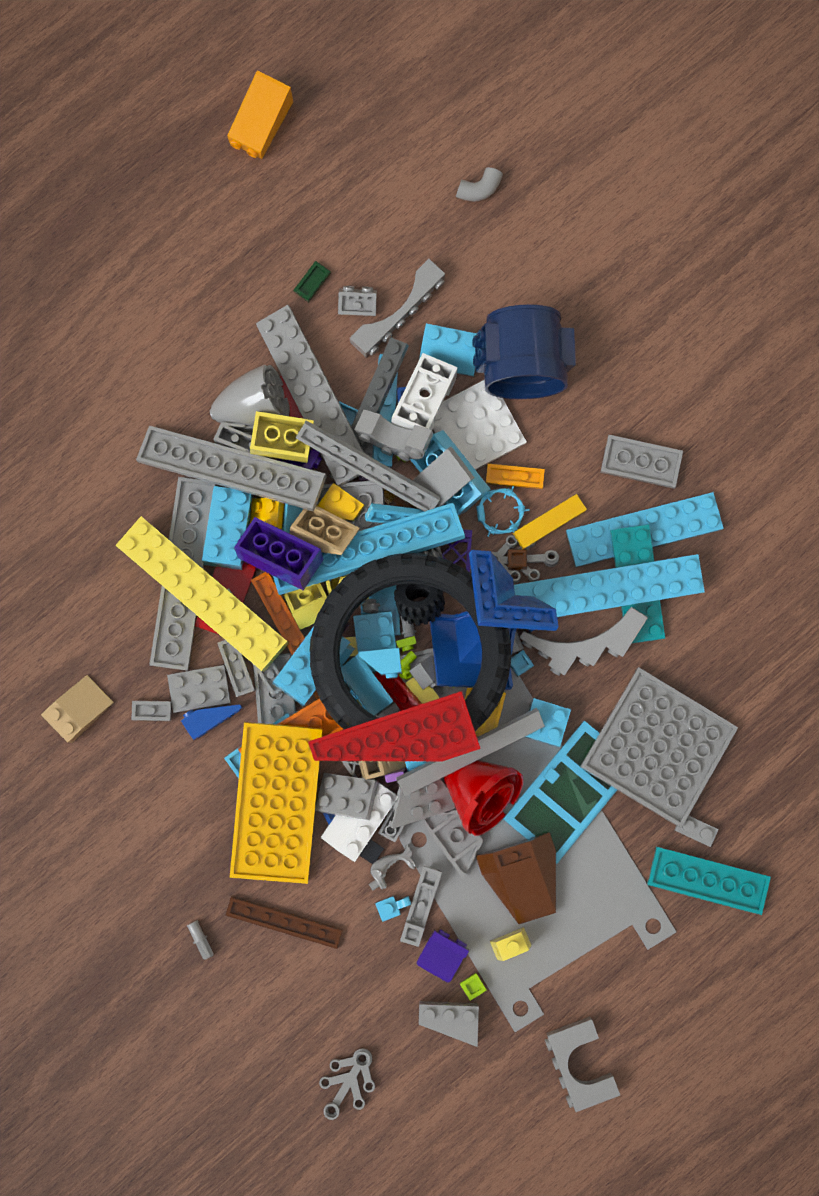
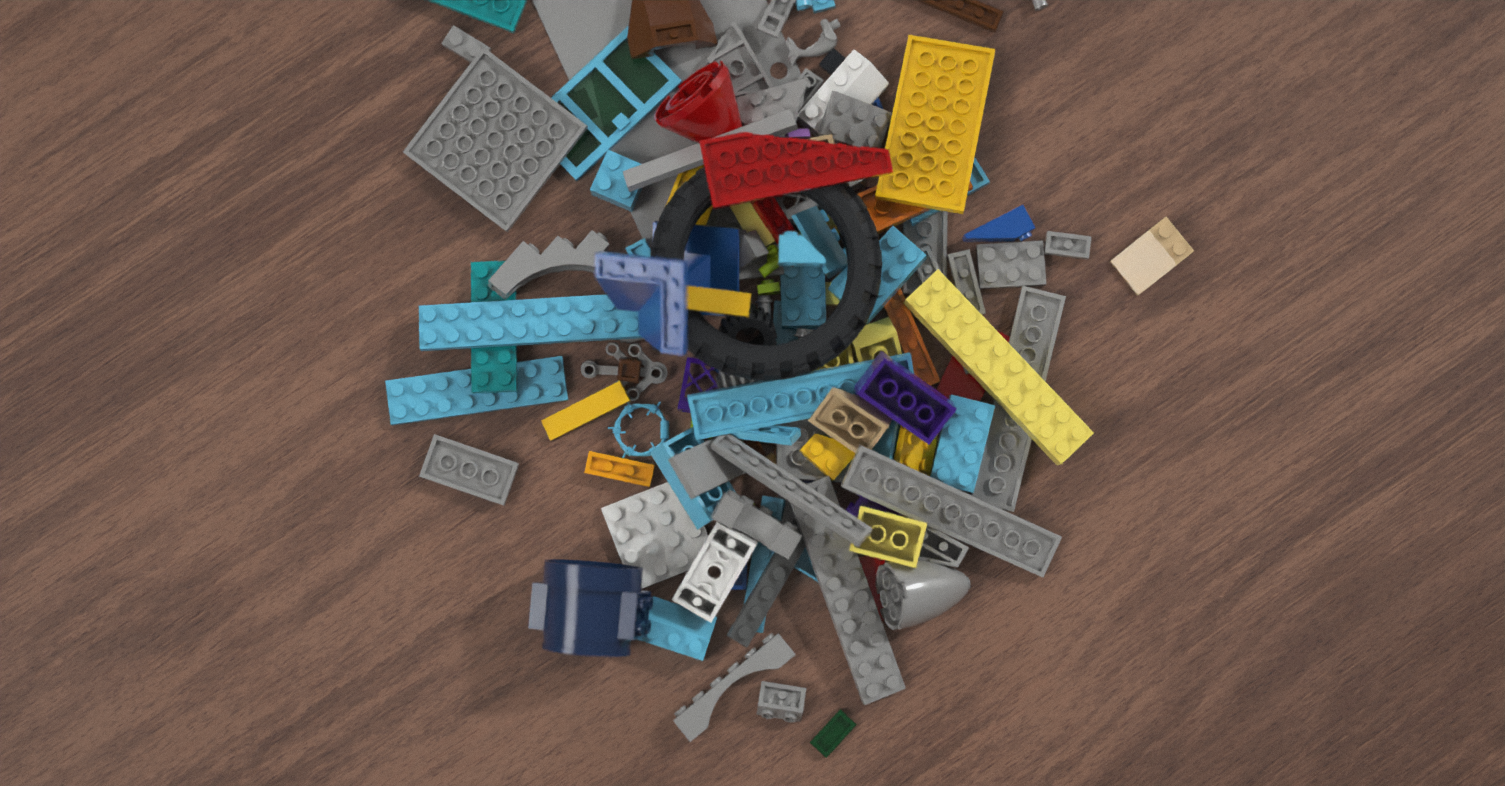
camera: 175 degrees left, 0 degrees up
(448, 611) = (718, 301): none -> yellow tile

